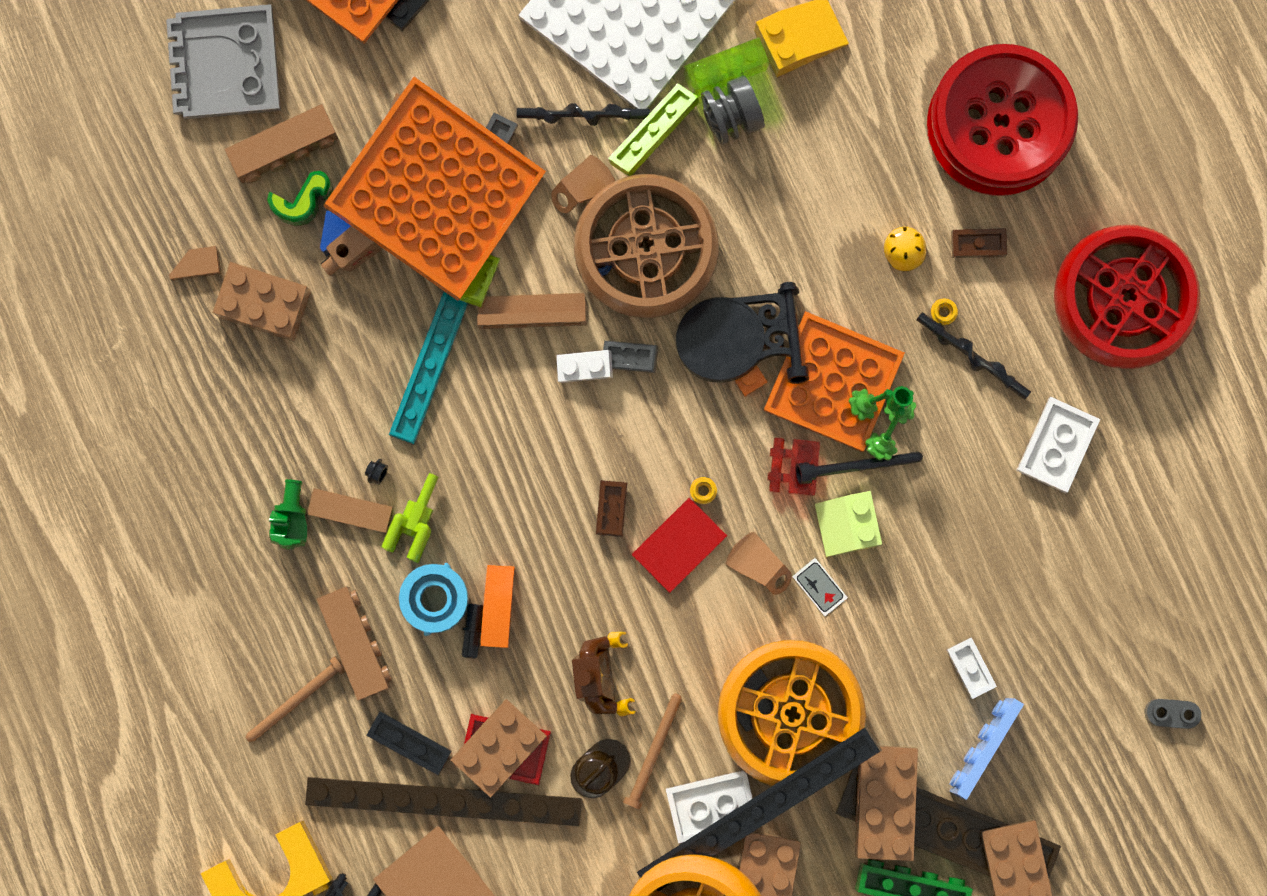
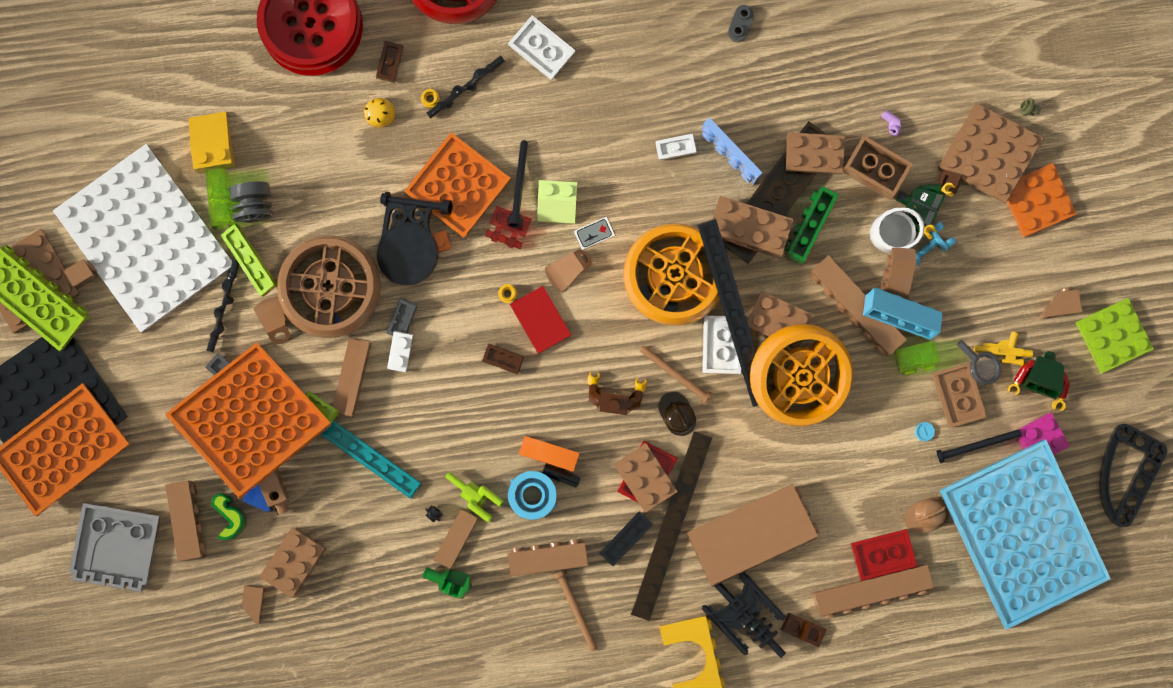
camera: 75 degrees left, 0 degrees up
(899, 408) = (487, 145): bright green plant -> none

